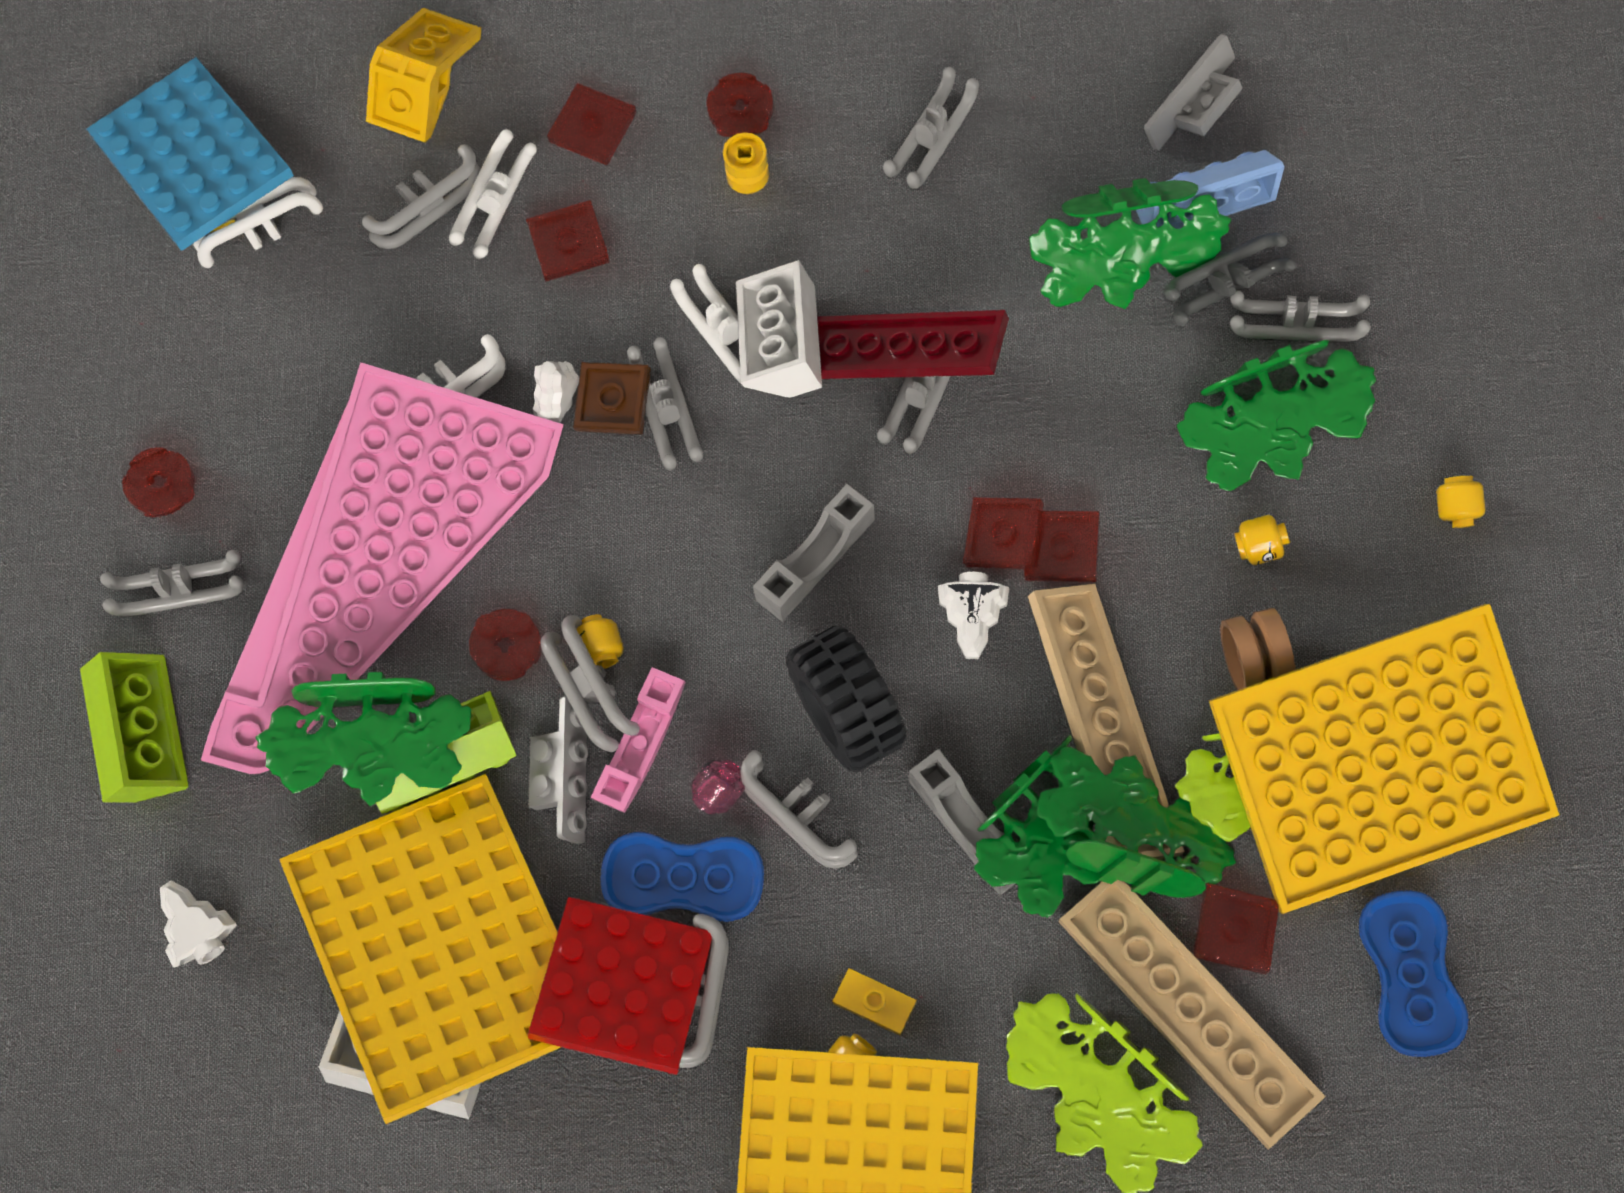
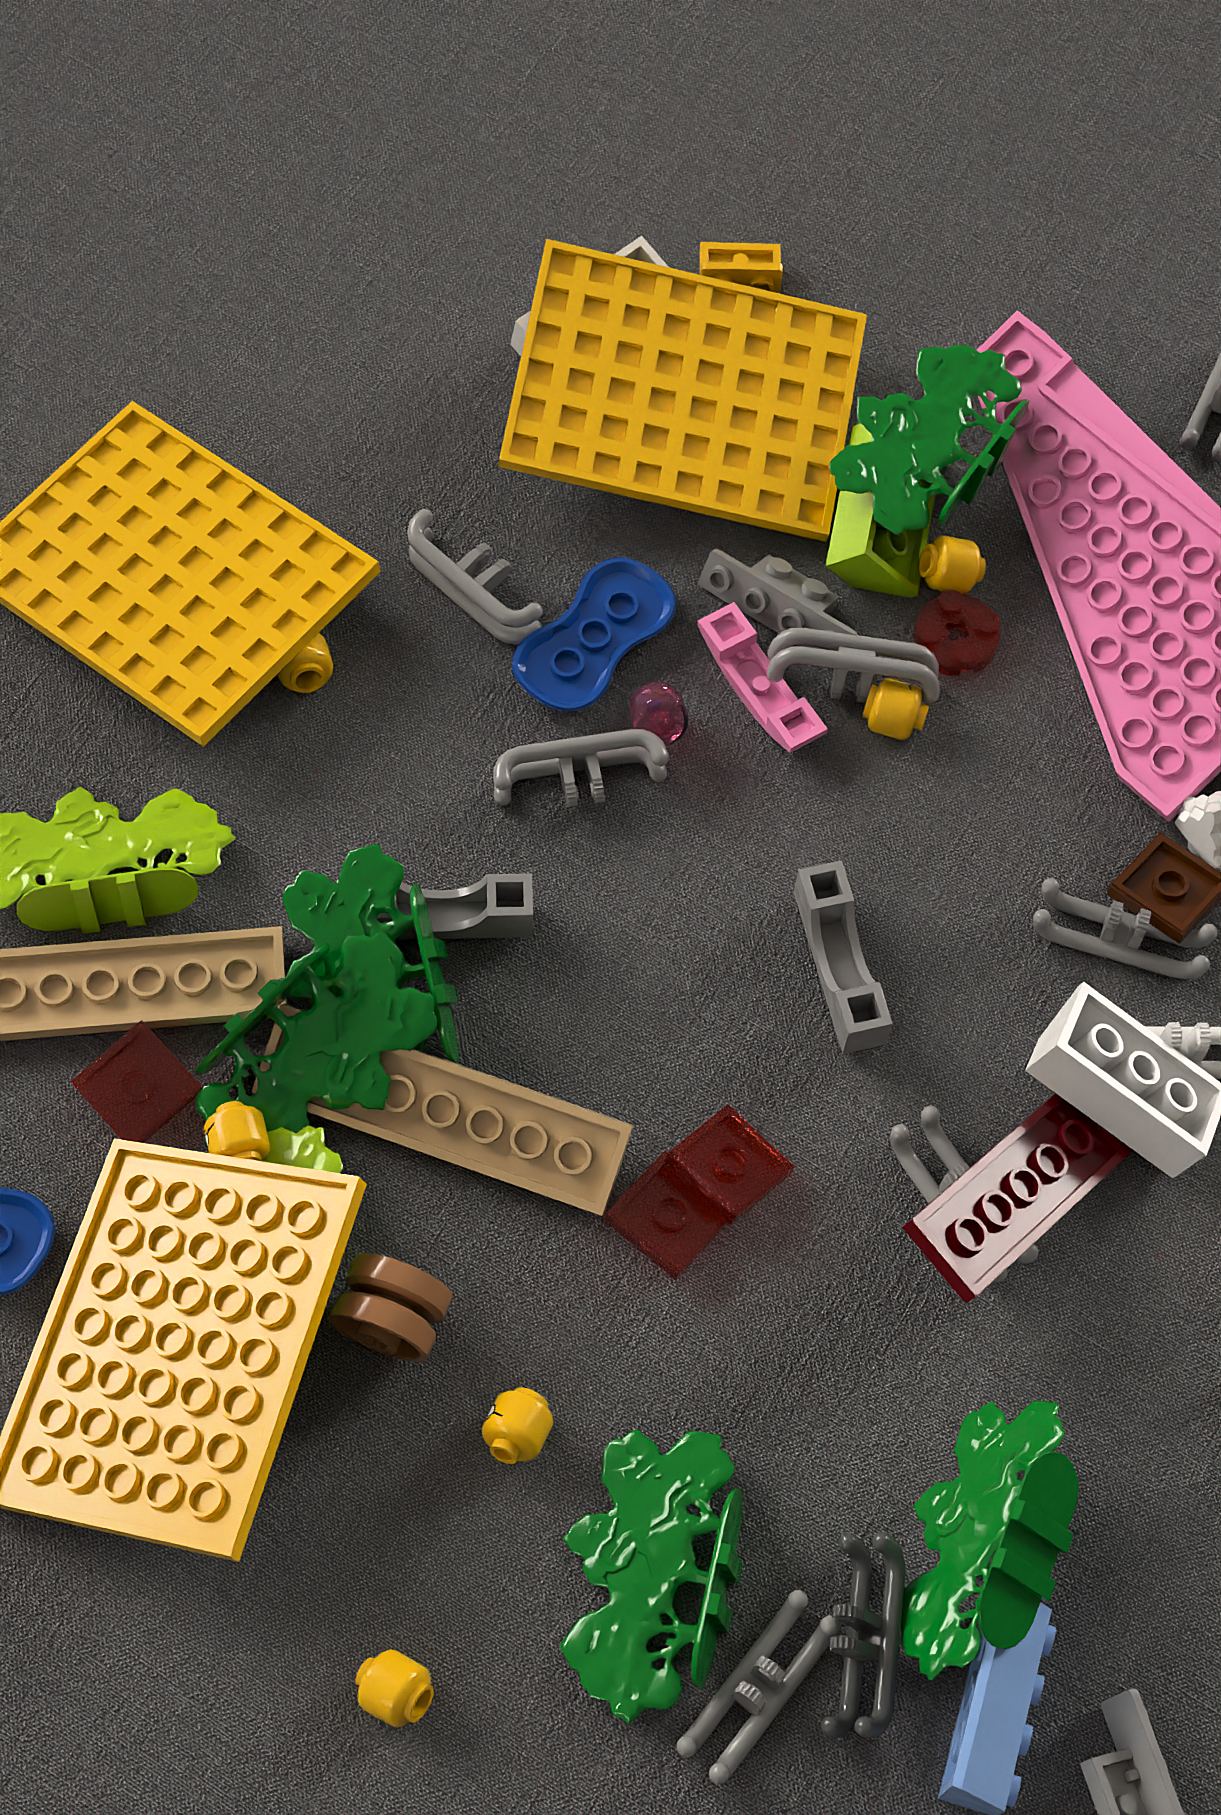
camera: 115 degrees right, 5 degrees down
(133, 726) = (1096, 290): lime slope -> none
(192, 926) = (862, 237): white rock -> none
(281, 995) = (743, 263): none -> yellow bracket
(454, 674) = (952, 564): none -> yellow head
(621, 985) = (522, 500): red plate -> none
(846, 698) = (648, 852): black tyre -> none
(874, 1001) = (343, 723): yellow plate -> none
(973, 609) = (665, 1075): white rock -> none
(1225, 829) = (237, 1132): none -> yellow head

